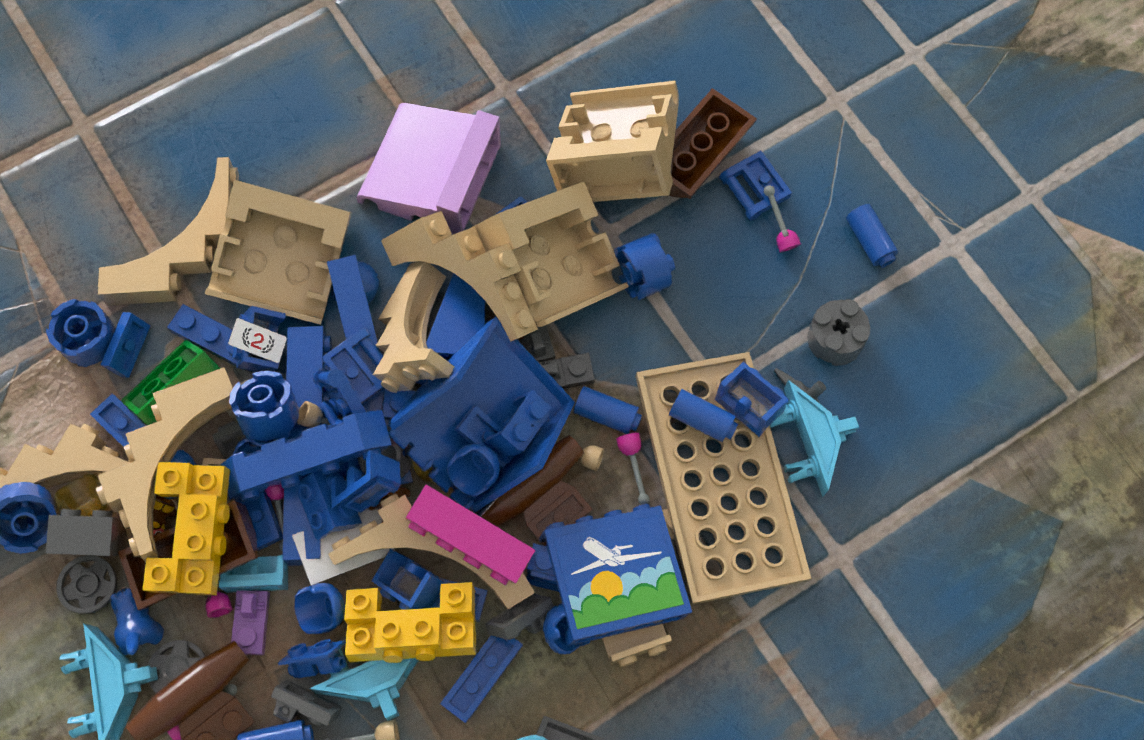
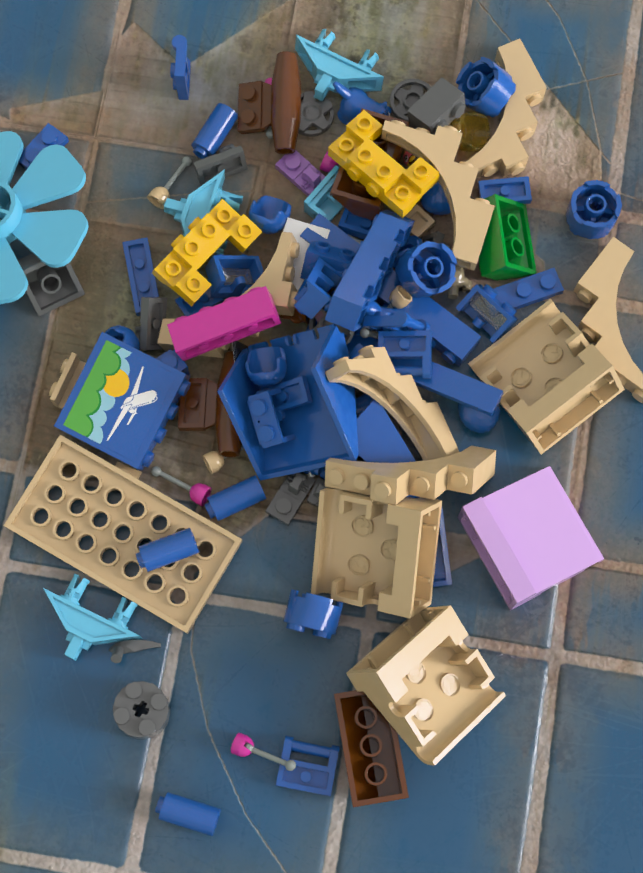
camera: 135 degrees right, 5 degrees up
(125, 345) = (562, 232): blue plate -> none
(257, 340) = (484, 306): white sticker -> none
(324, 654) = (242, 187): blue hinge -> none
(751, 398) = (148, 593): blue window -> none

